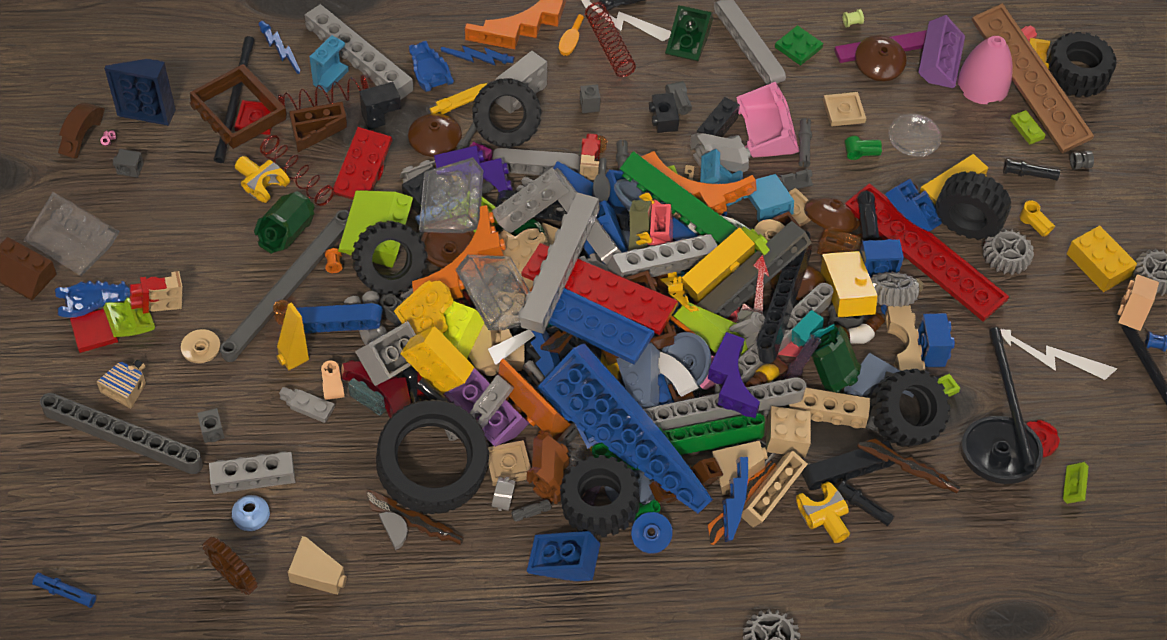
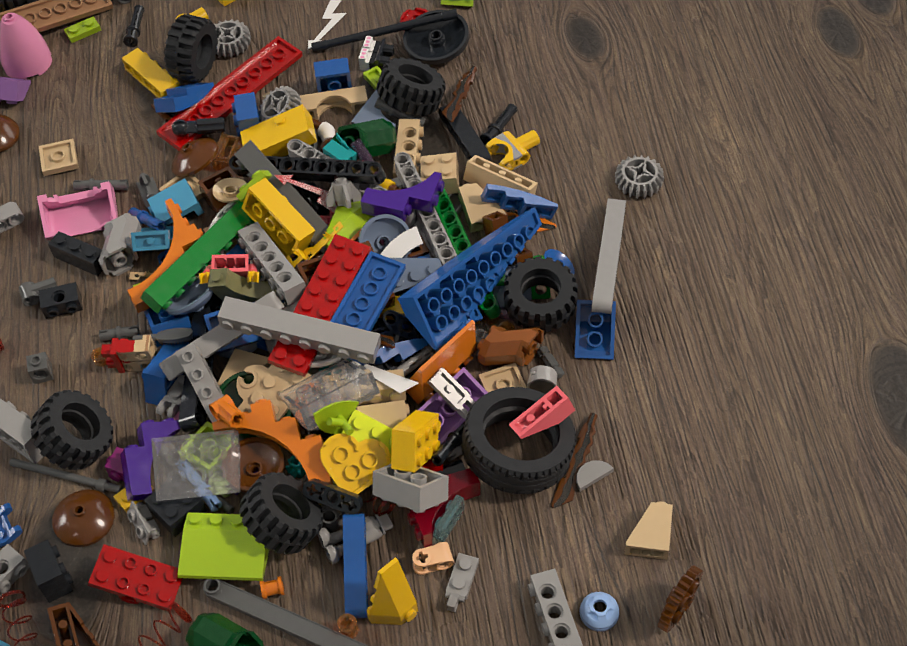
camera: 90 degrees left, 0 degrees up
(397, 296) = (320, 485): none -> black beam
(442, 468) = (543, 414): none -> coral slope
(457, 100) = (31, 494): yellow piece -> none
(463, 291) = (334, 417): none -> lime shield
(492, 211) = (227, 411): none -> orange piece
(535, 162) = (128, 407): light grey beam -> none
(649, 575) = (609, 256): none -> light grey beam
(761, 170) = (144, 218): none -> blue pin
(857, 148) = (108, 143): green piece -> none
(915, 134) = (89, 107): clear dish -> none
(985, 394) = (374, 53): none -> hips

